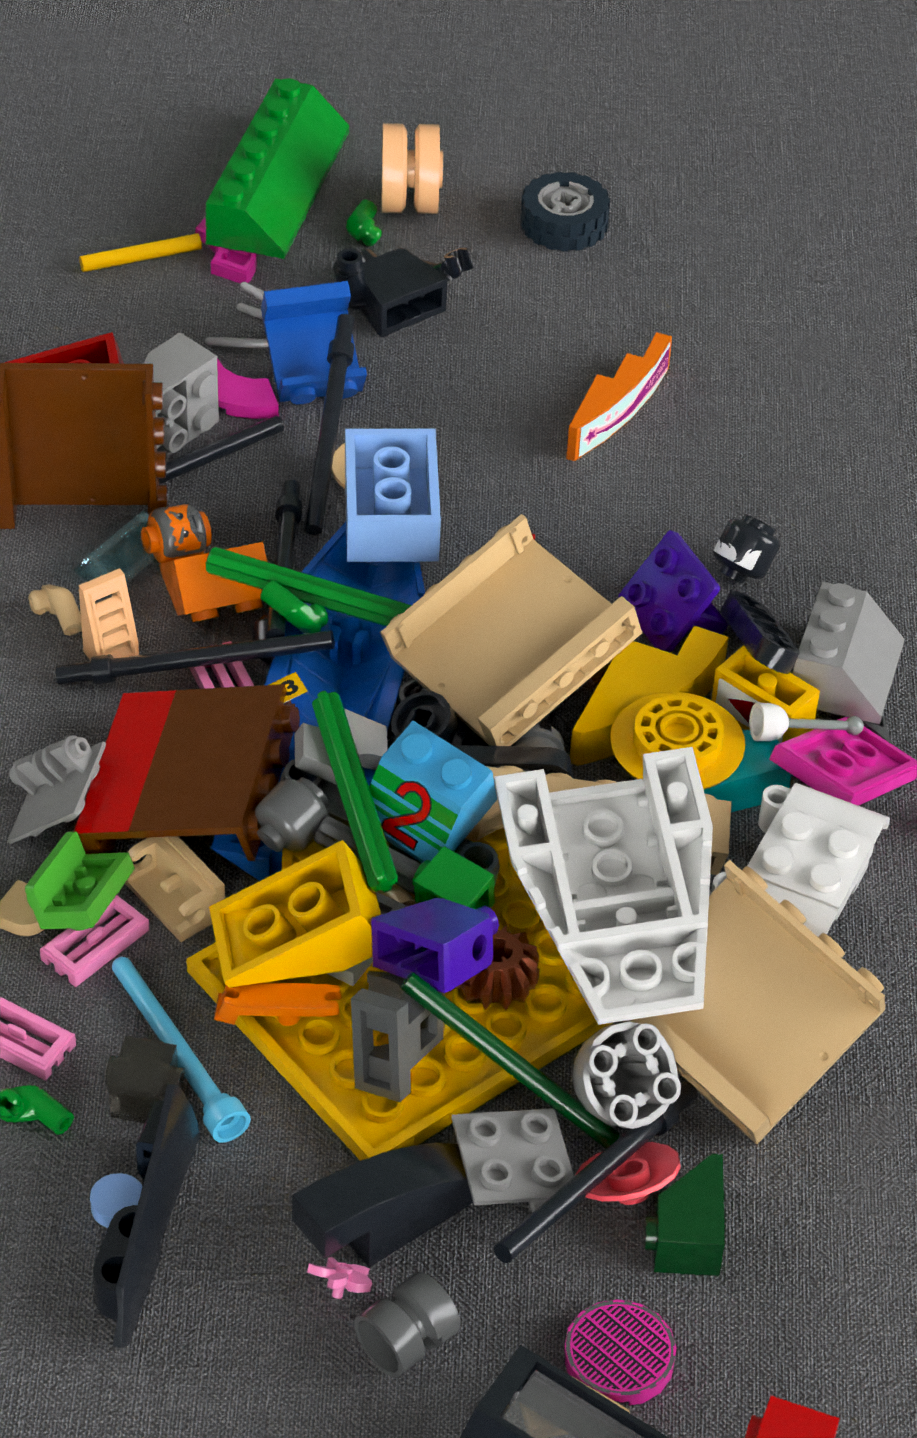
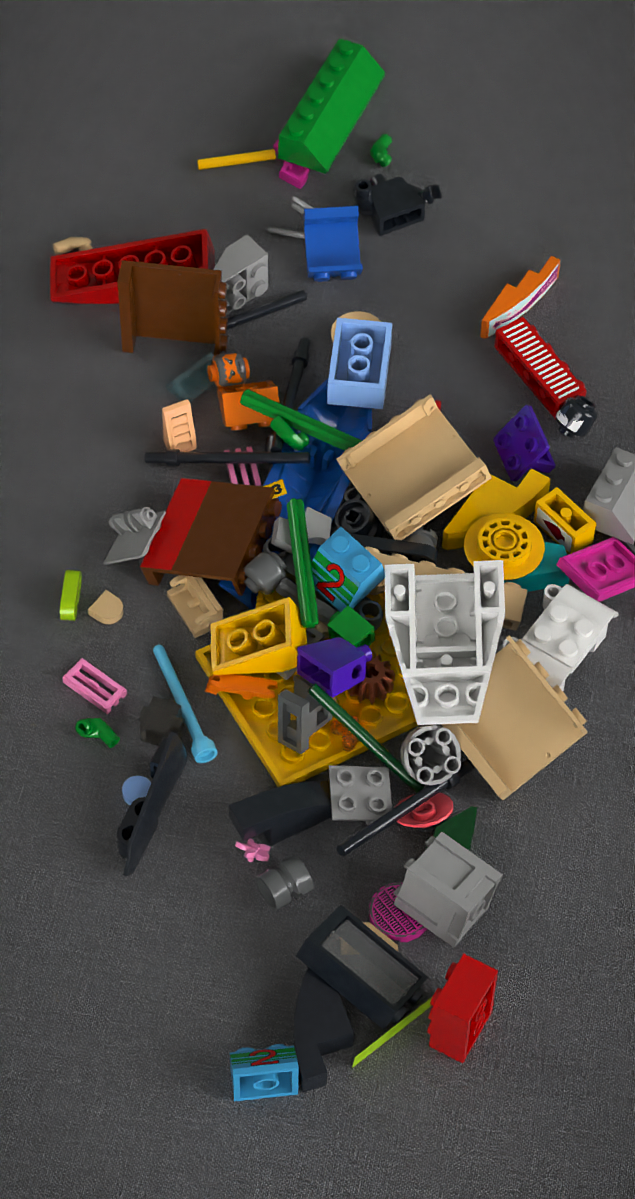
camera: 10 degrees right, 10 degrees up
(60, 603) = (152, 409): tan arm -> none
(75, 886) = (138, 598): bright green bracket -> none
(101, 943) = (149, 635): bright pink tile -> none
(245, 396) = (284, 272): dark pink tile -> none
(339, 357) = (346, 256): black bar -> none
(411, 168) = (416, 116): light nougat wheel -> none
(477, 1065) = (348, 739): none -> clear orange piece
(565, 211) = (513, 153): black wheel -> none
(666, 485) = (537, 364): none -> red brick
(701, 1296) = (447, 888): none -> light grey container
(759, 632) = (569, 477): black beam -> none
(771, 721) = (562, 540): white hinge -> none

